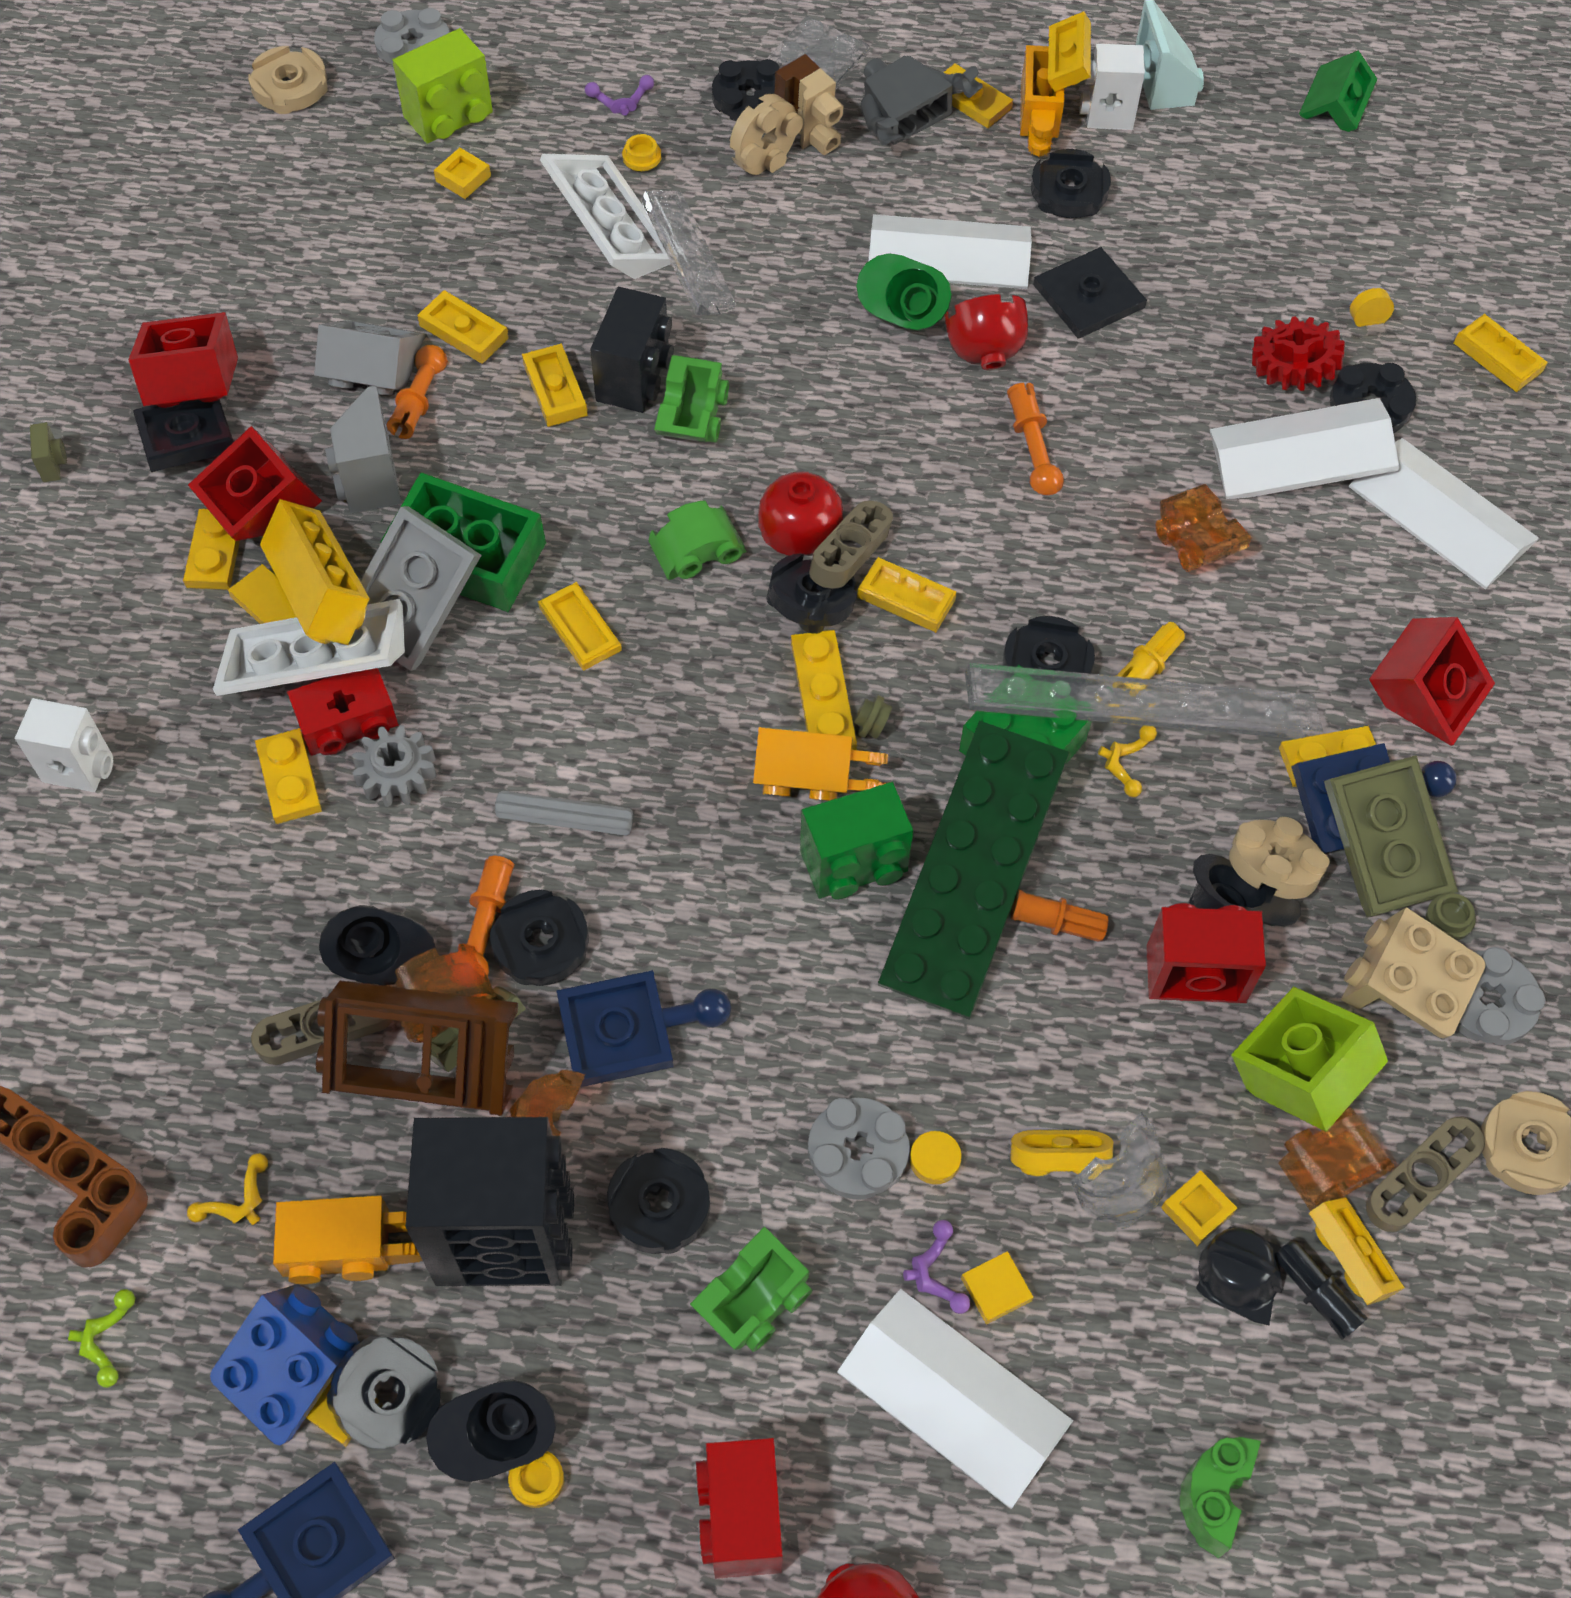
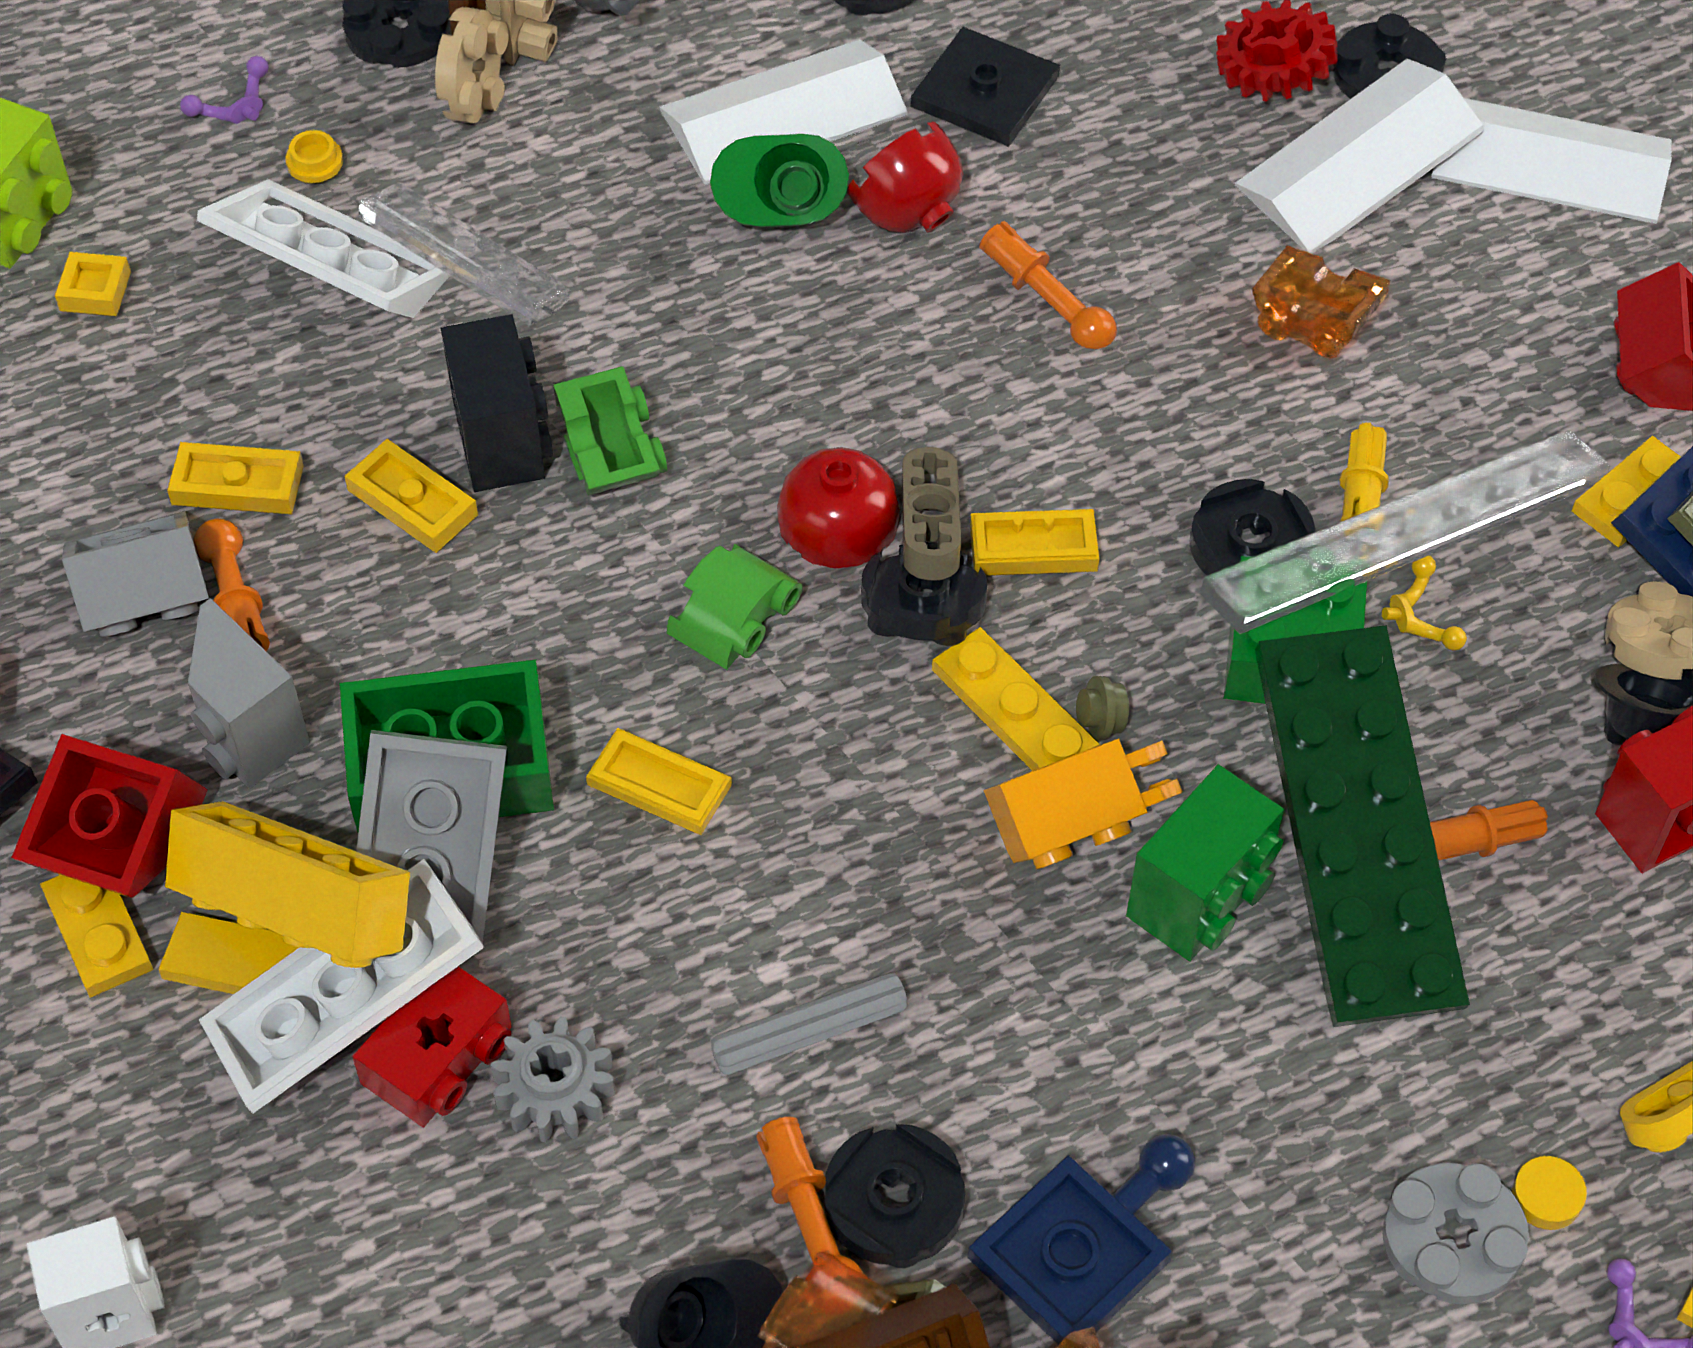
camera: 30 degrees left, 5 degrees down
(288, 776) = (414, 1169): yellow plate -> none

